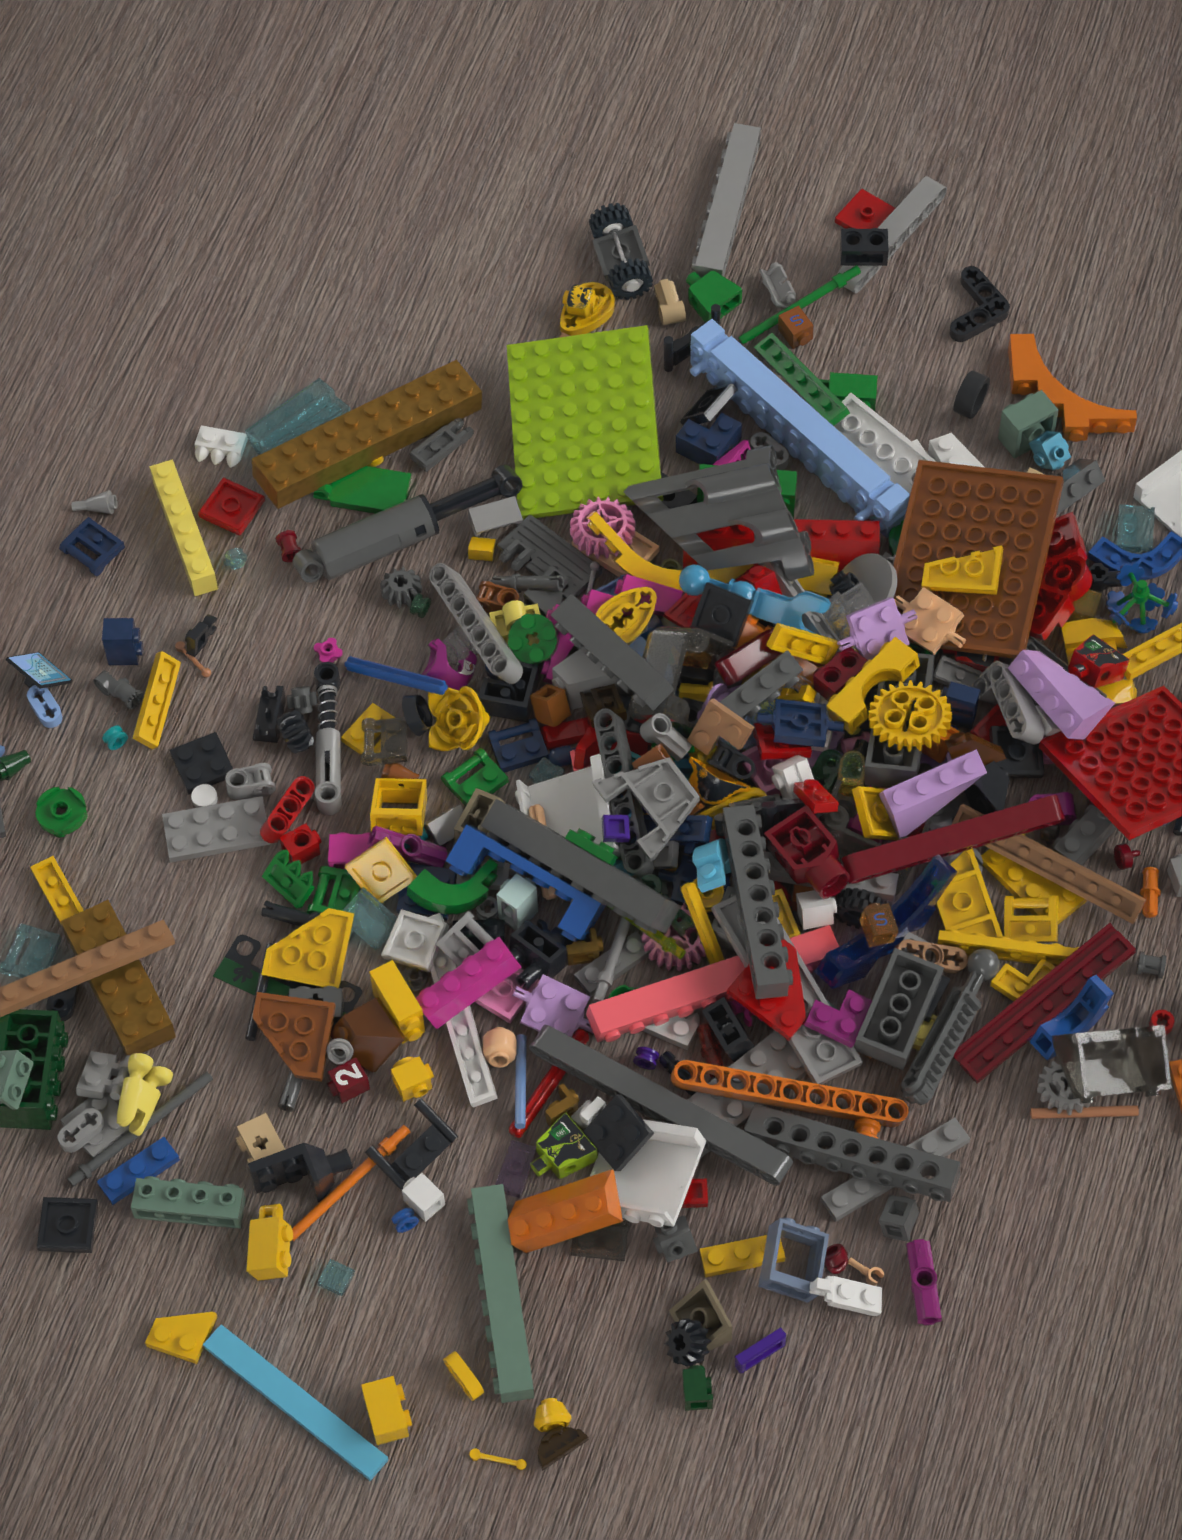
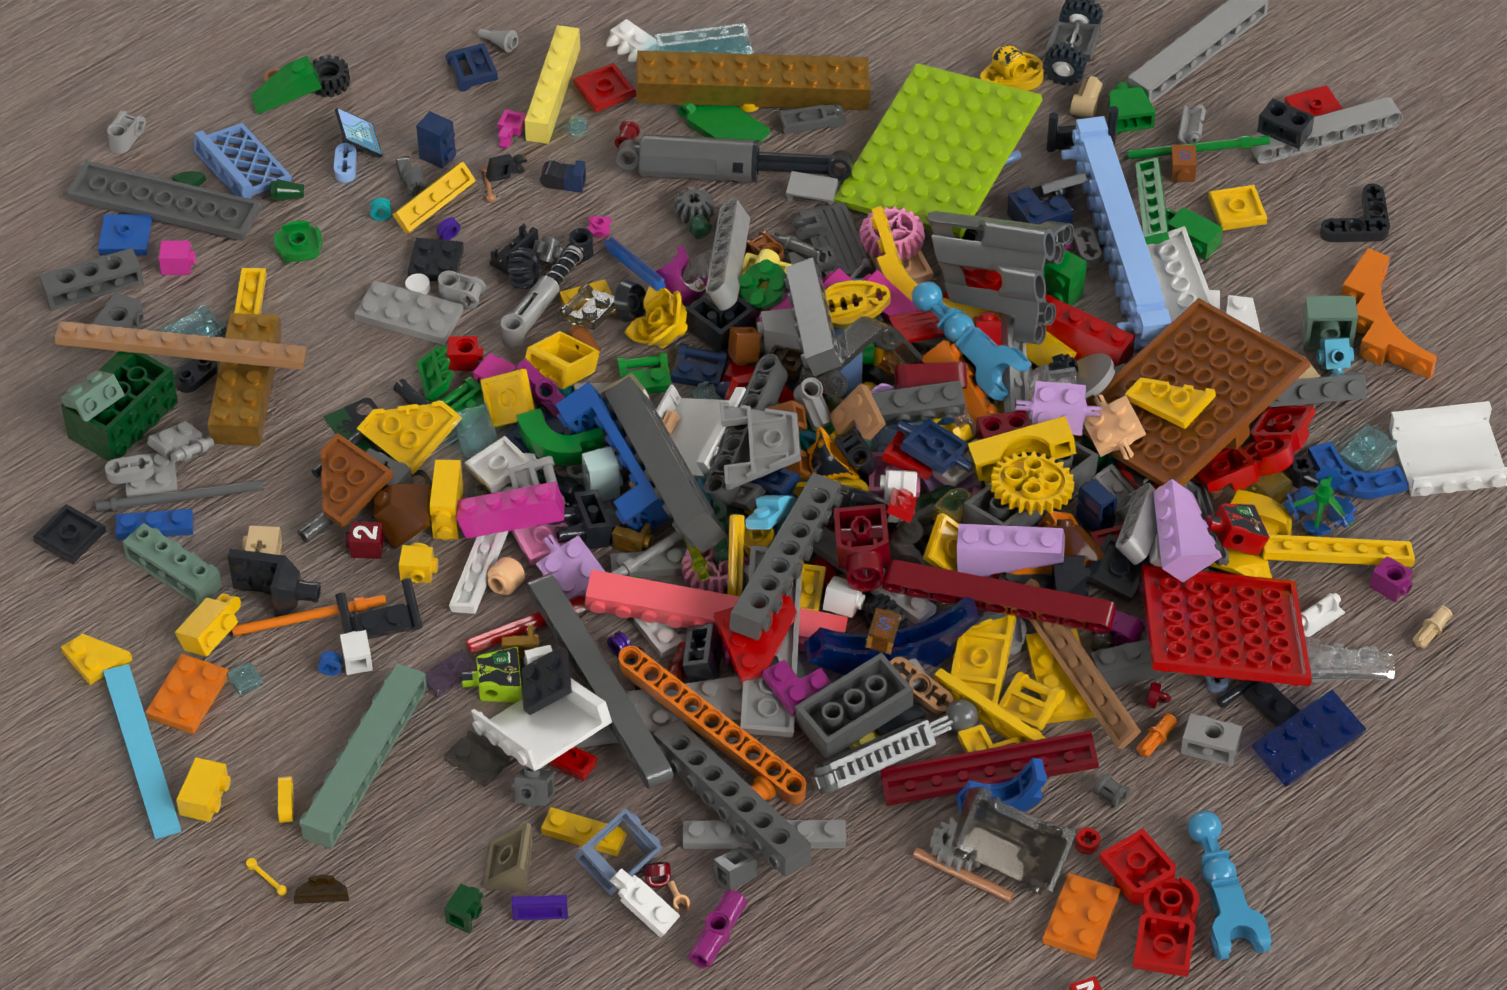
camera: 30 degrees right, 10 degrees down
(140, 1092) = (193, 467): light yellow piece -> none
(173, 588) = (509, 124): none -> dark pink plate
(193, 726) = (448, 229): none -> dark purple tile
(260, 616) = (564, 176): none -> leg
(294, 802) = (479, 313): red beam -> none
(295, 1322) = (187, 693): none -> orange plate
(336, 1055) = (370, 510): light grey plate -> none
(481, 548) = (784, 209): yellow slope -> none
(520, 1083) = (506, 605): medium blue bar -> none
(551, 1415) = (331, 863): yellow cone -> none
(565, 1212) = (455, 719): orange slope -> none
(586, 841) = (685, 451): green plate -> none
(615, 828) = (714, 448): dark purple tile -> none
(687, 1342) = (482, 866): black gear -> none
(722, 612) = (930, 331): black plate -> none
(802, 644) = (982, 386): yellow plate -> none
(869, 347) = (1237, 207): none -> yellow plate
(971, 394) = (1289, 272): black tyre -> none

